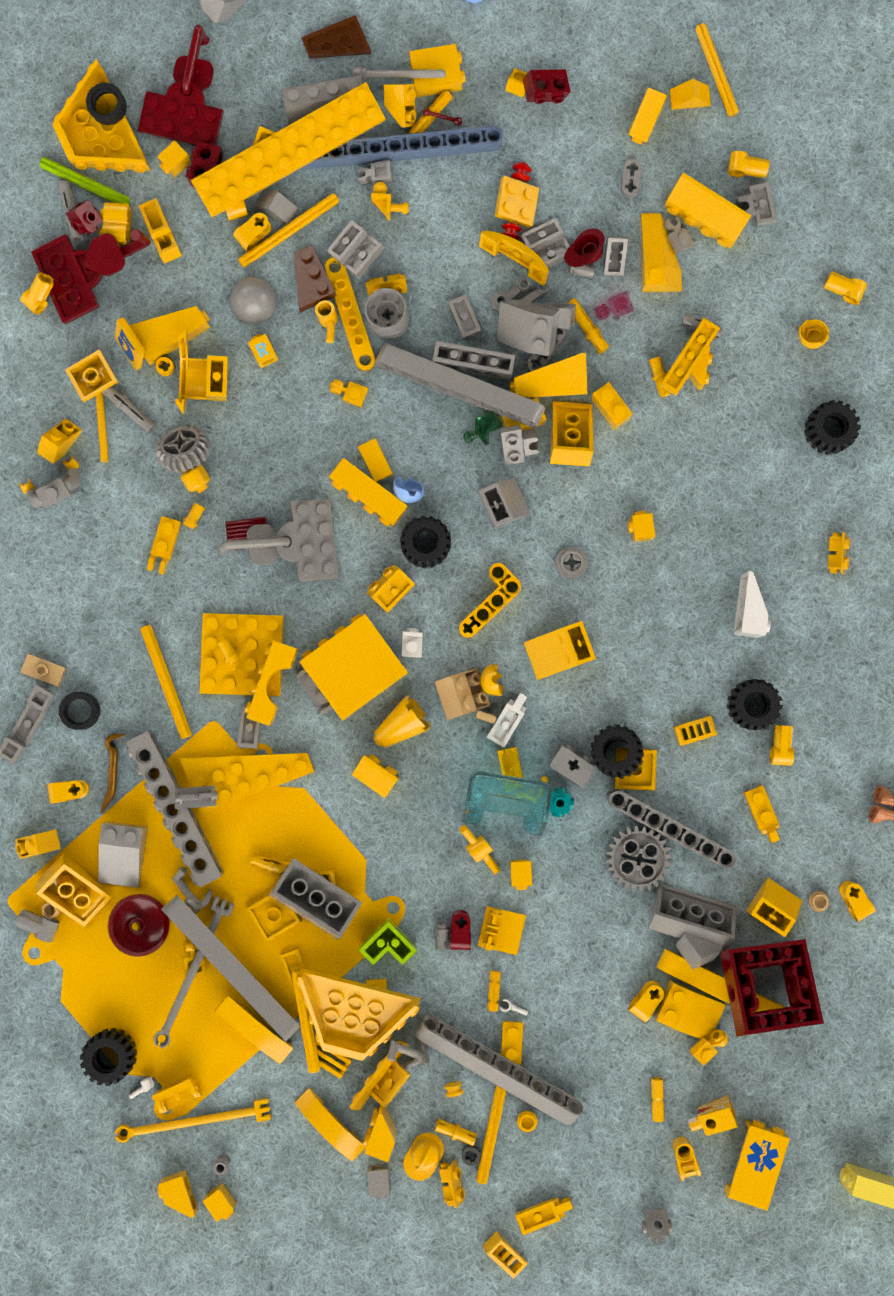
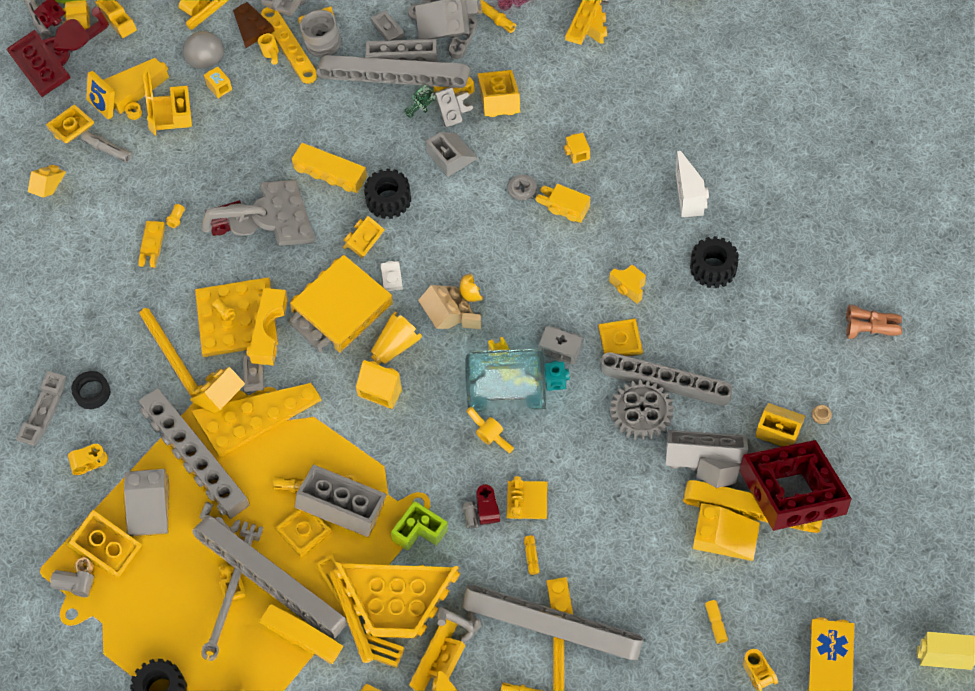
camera: 10 degrees left, 25 degrees down
(36, 295) = (13, 79): yellow piece -> none
(37, 844) = (64, 509): yellow slope -> none
(43, 670) = (53, 363): tan plate -> none
(55, 490) = (46, 216): light grey torso -> none
(102, 427) = (83, 165): yellow bar -> none
(112, 769) = (128, 434): pearl gold piece -> none
(151, 922) = (172, 557): dark red dish -> none
(182, 448) = (158, 161): light grey gear -> none
(195, 479) = (172, 185): yellow head -> none
(195, 797) = (211, 433): light grey hinge -> none
(208, 745) = (217, 390): none -> yellow slope
(354, 393) = (302, 100): yellow plate -> none
(375, 460) = (329, 143): yellow tile -> none
(408, 491) = (364, 159): light blue hair -> none
(453, 1089) = (511, 651): yellow bush -> none
(487, 604) = (443, 250): yellow beam -> none
(508, 721) = (492, 320): white hinge -> none
(513, 1007) = (550, 567): white hand -> none
(521, 874) = (533, 444): yellow brick -> none
(527, 1121) = (591, 669): yellow plate -> none
(555, 379) = (478, 52): yellow slope -> none
(559, 650) = (528, 253): yellow slope -> none
(611, 406) = (528, 65): yellow brick -> none
(612, 735) = (594, 310): black tyre -> none
(614, 594) = (565, 202): none -> yellow hinge
(644, 1003) = (681, 533): yellow piece -> none
(658, 375) = (559, 30): yellow axle -> none
(659, 708) = (628, 282): none -> yellow brick
(679, 735) = (664, 304): yellow slope -> none
(705, 1050) = (749, 565): yellow plate -> none
(715, 1117) = (781, 614): yellow torso -> none
(762, 812) = (747, 351): yellow hinge -> none
(782, 751) = (749, 296): yellow piece -> none
(839, 545) = (755, 129): yellow hinge -> none
(846, 419) = (721, 33): black tyre -> none
(858, 902) = (856, 405): yellow piece -> none

